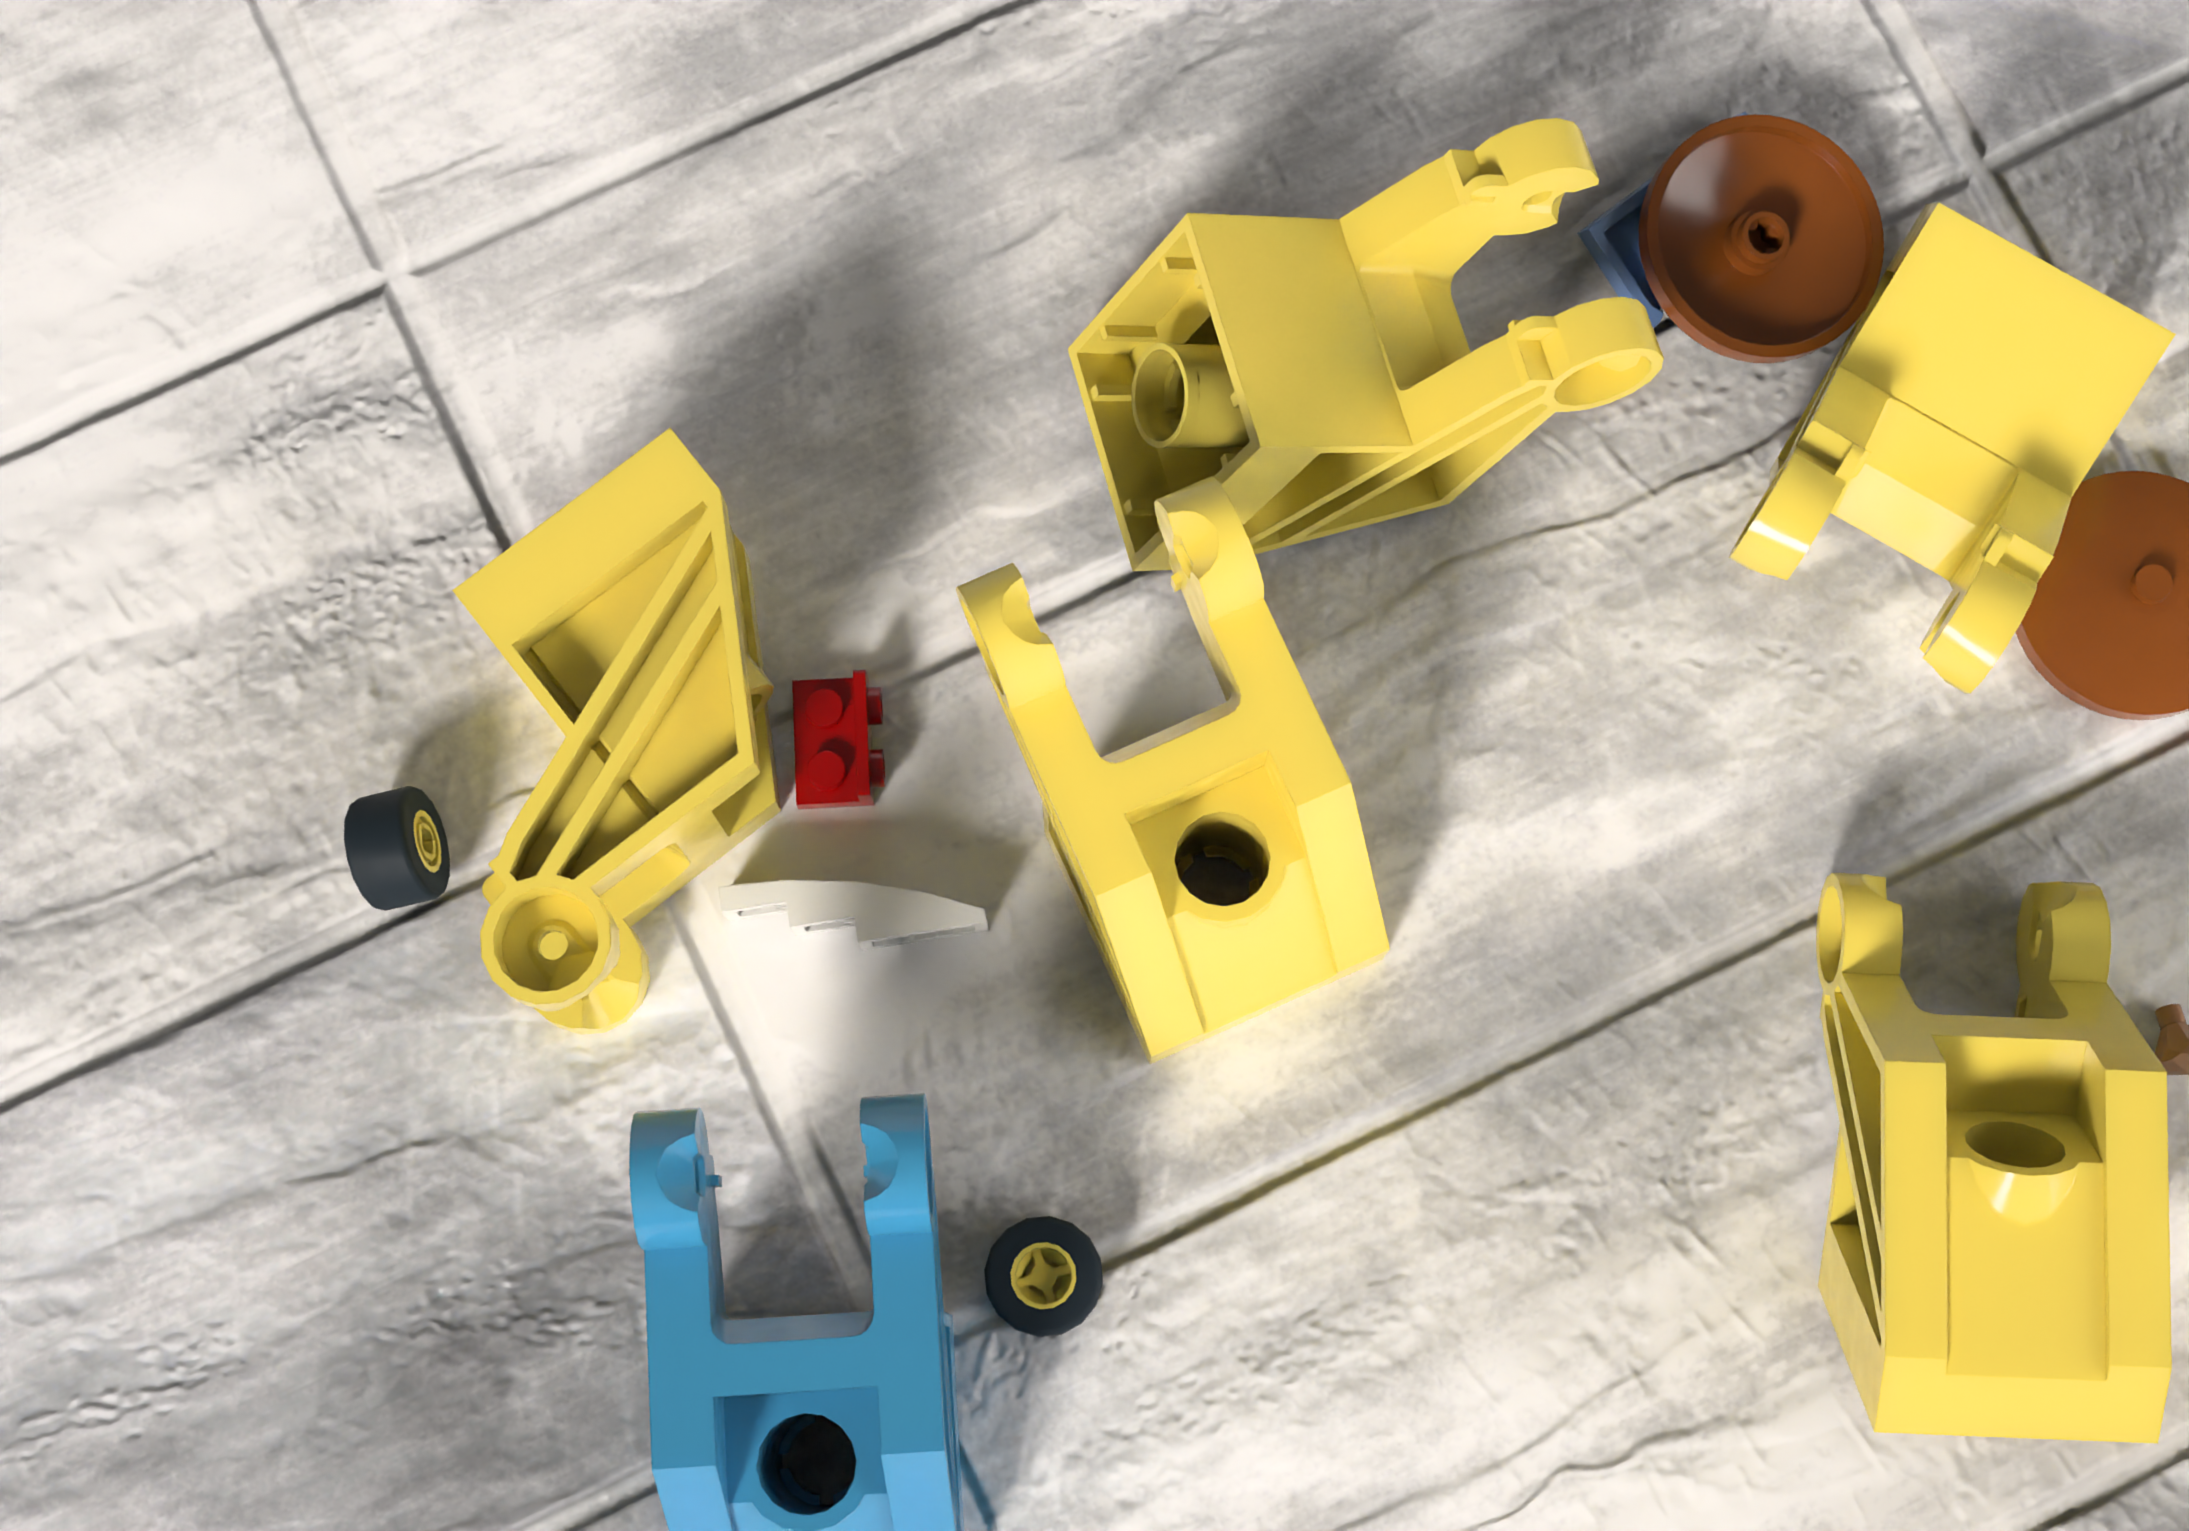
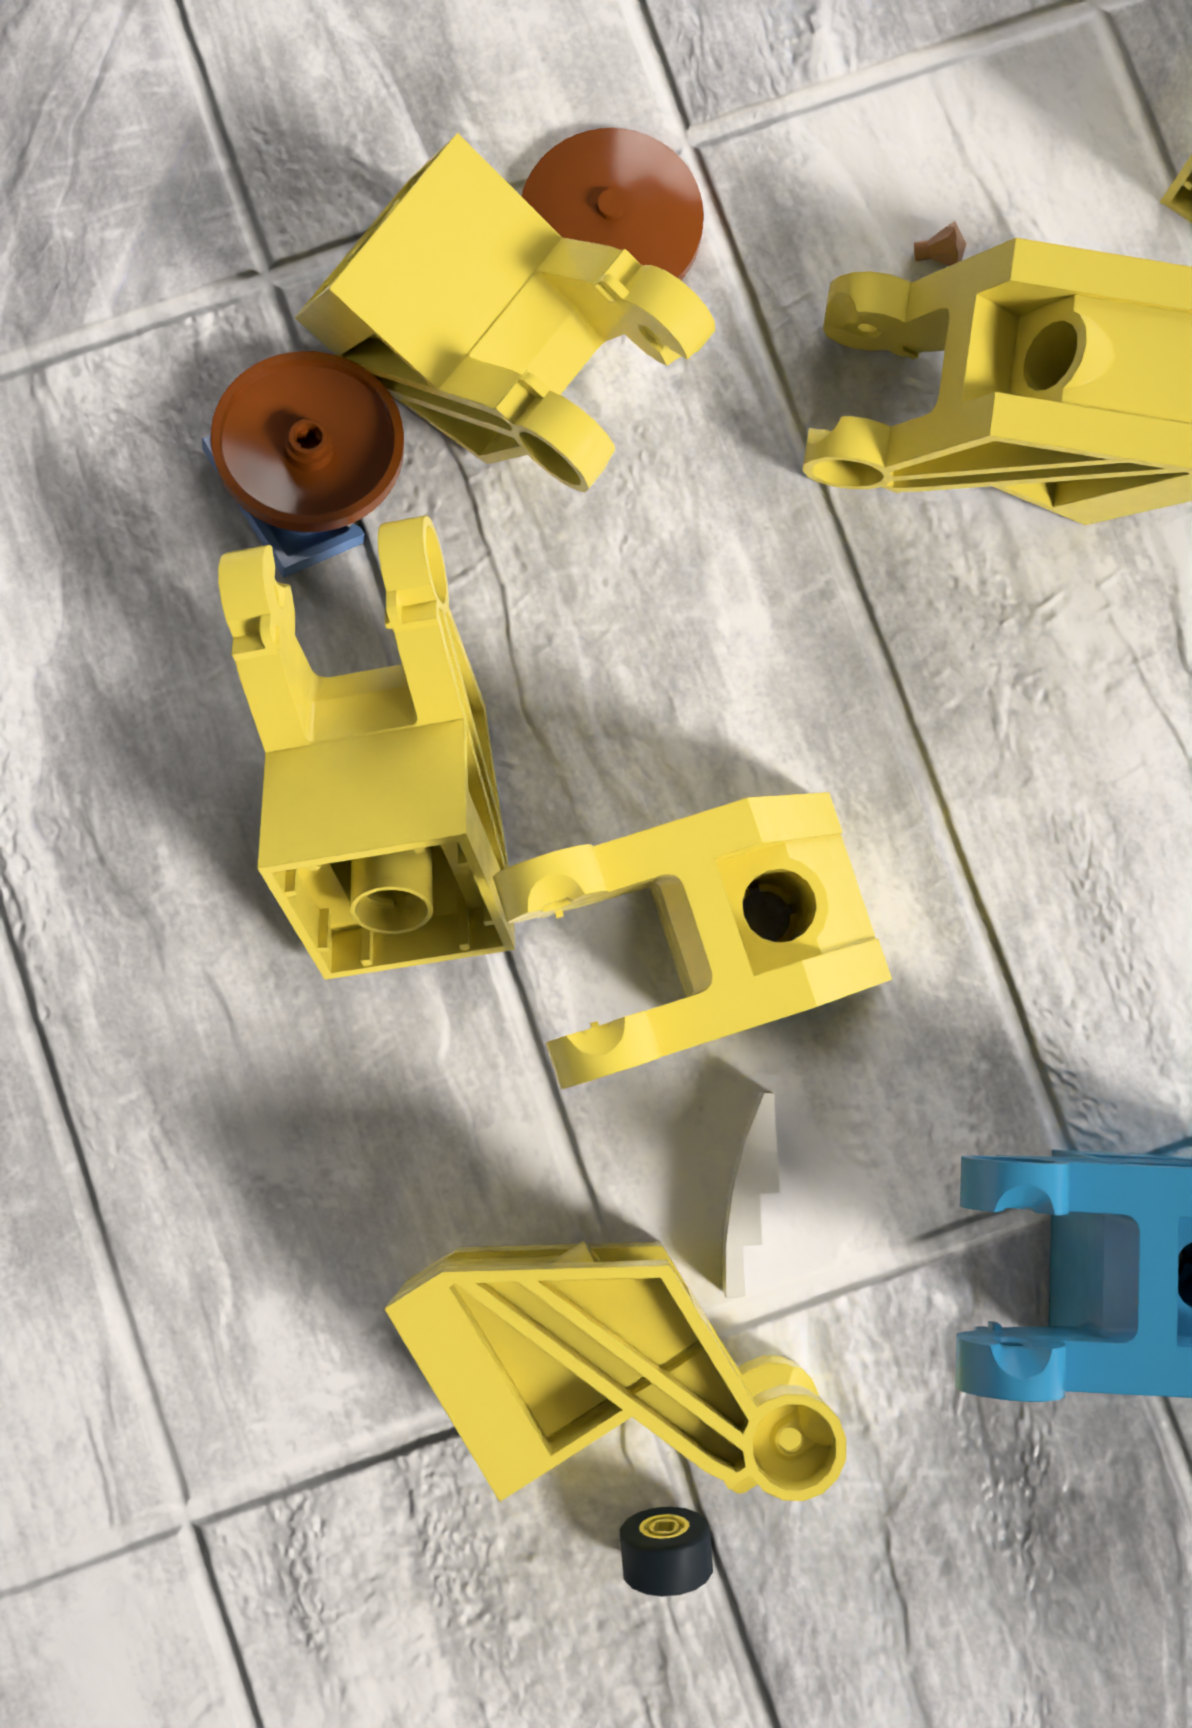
camera: 85 degrees left, 5 degrees up
(835, 742) = (614, 1194): red bracket -> none
(1028, 1264) = (1056, 1075): black wheel -> none

